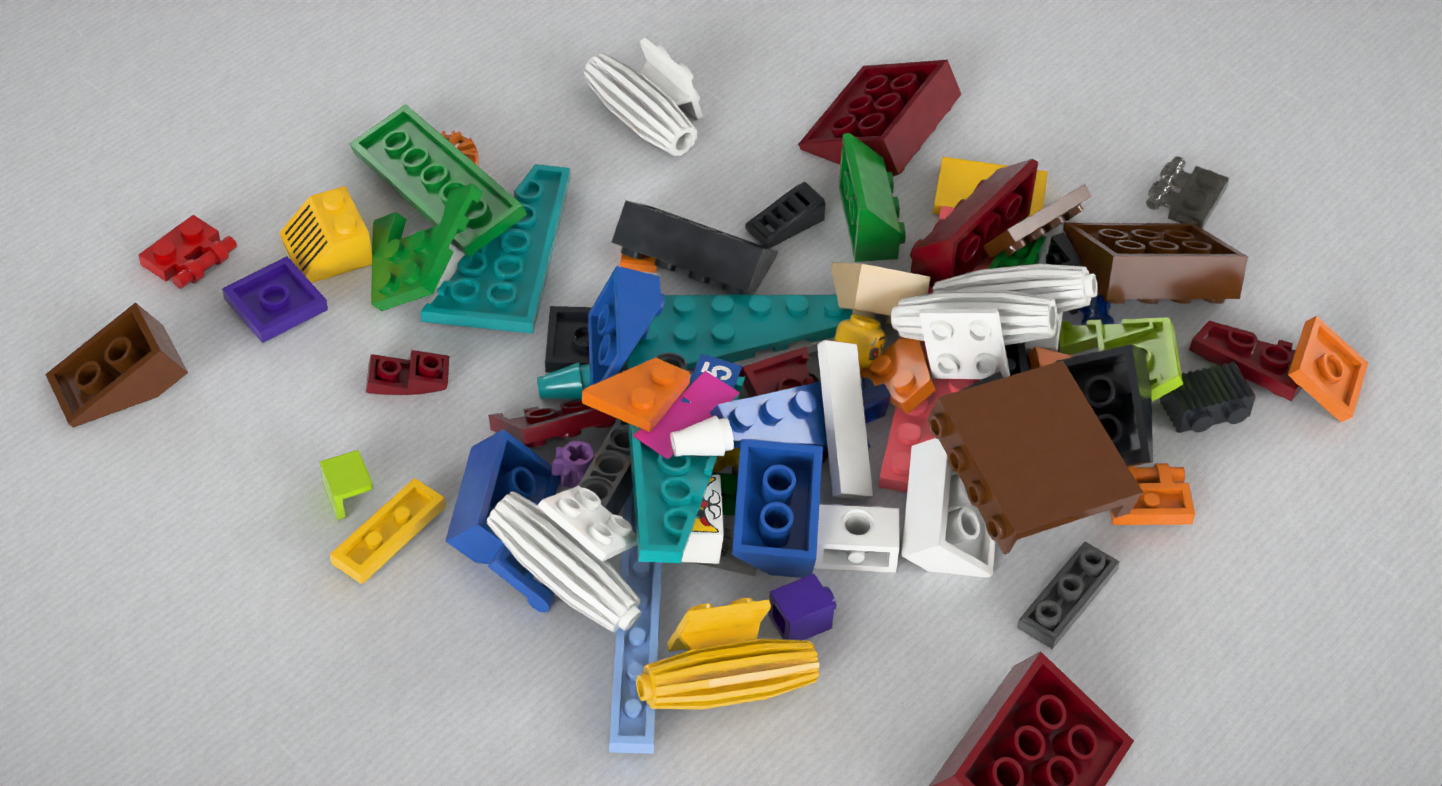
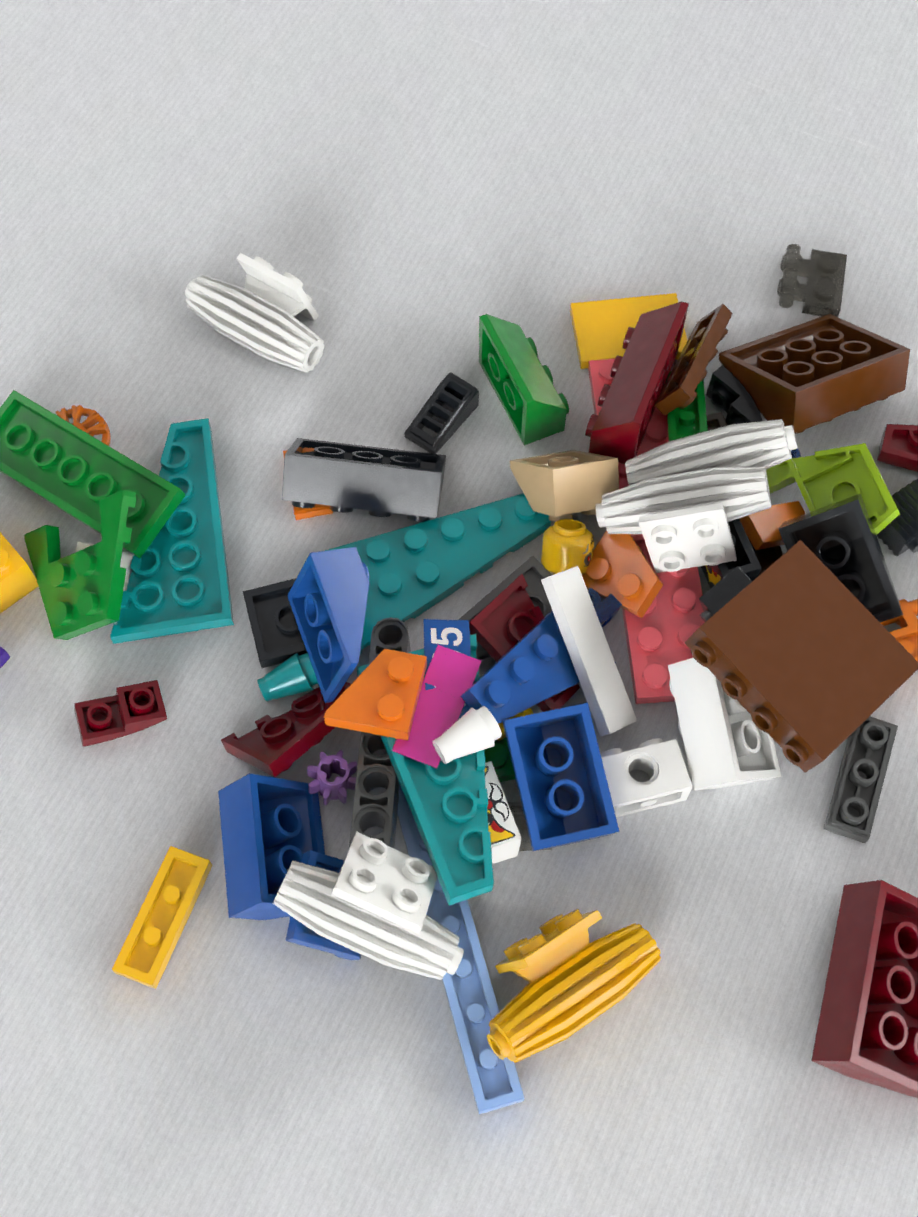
camera: 15 degrees left, 15 degrees up
(343, 478) = (99, 872): lime panel -> none
(802, 608) = (616, 882): dark purple brick -> none
(887, 110) = (498, 267): dark red slope -> none

